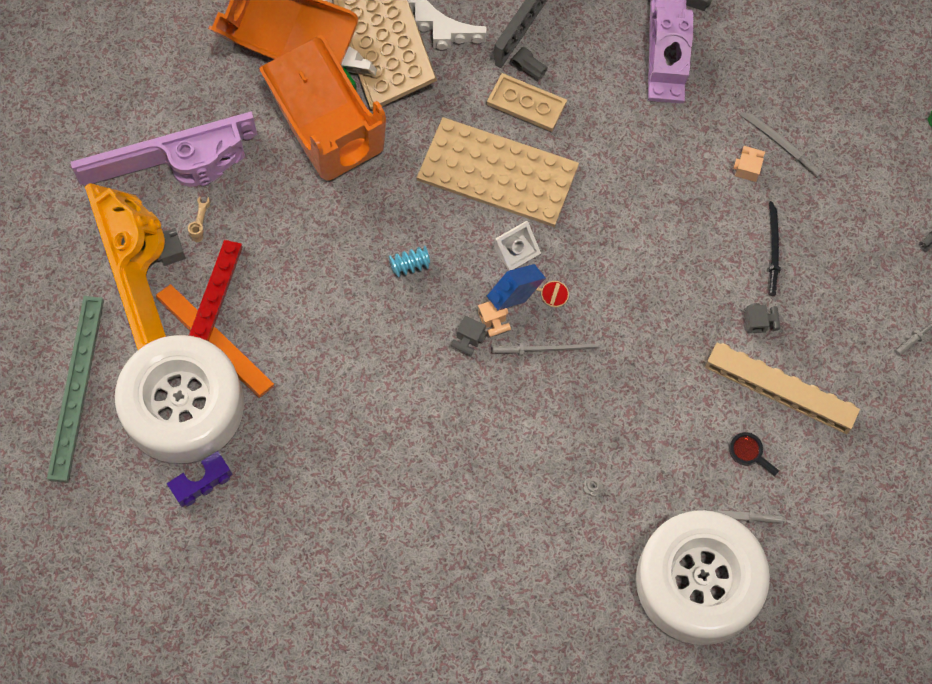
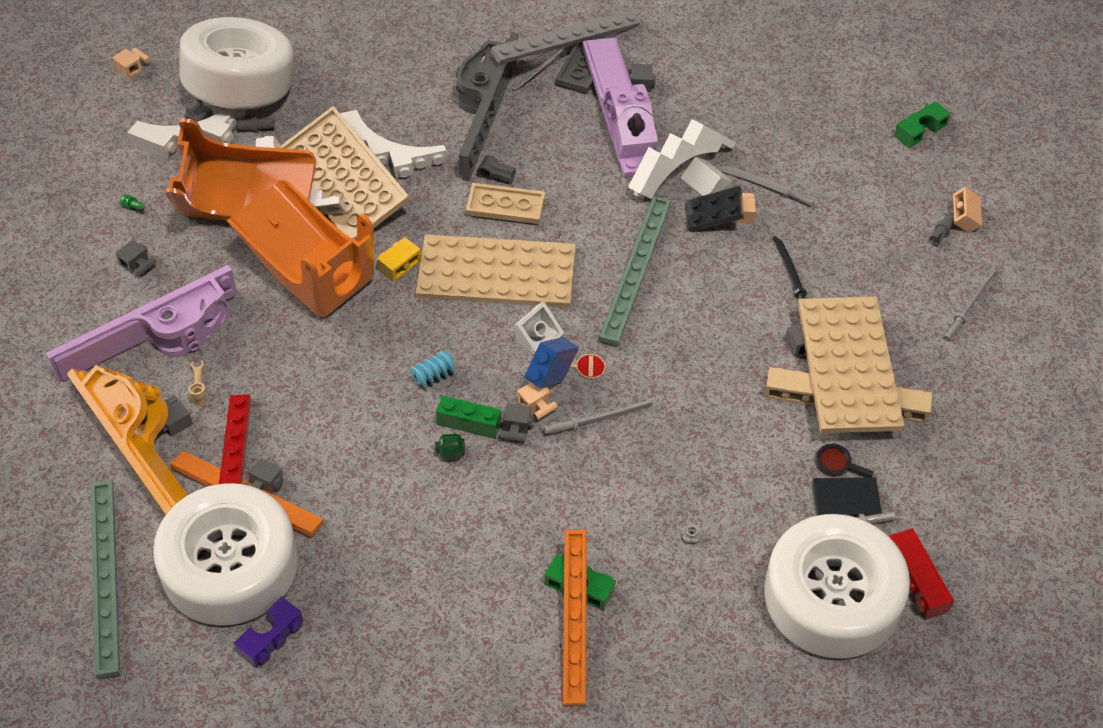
camera: 15 degrees left, 15 degrees down
(174, 76) = (135, 258): none -> dark grey brick
(185, 15) = (130, 202): none -> green bar
(232, 330) = (265, 476): none -> dark grey brick
(403, 343) = (450, 447): none -> dark green head
(411, 138) = (399, 259): none -> yellow brick
(428, 318) = (468, 417): none -> green brick
(463, 540) = (575, 618): none -> orange tile
(467, 493) = (599, 586): none -> green arch
(626, 205) = (635, 271): none -> sand green plate
(680, 100) = (657, 166): none -> white arch
(722, 160) = (715, 209): none -> black plate
(725, 122) = (704, 177): none -> white slope
(745, 489) = (847, 496): none -> black tile
(784, 584) = (925, 582): none -> red brick
(792, 360) = (849, 365): none -> tan plate

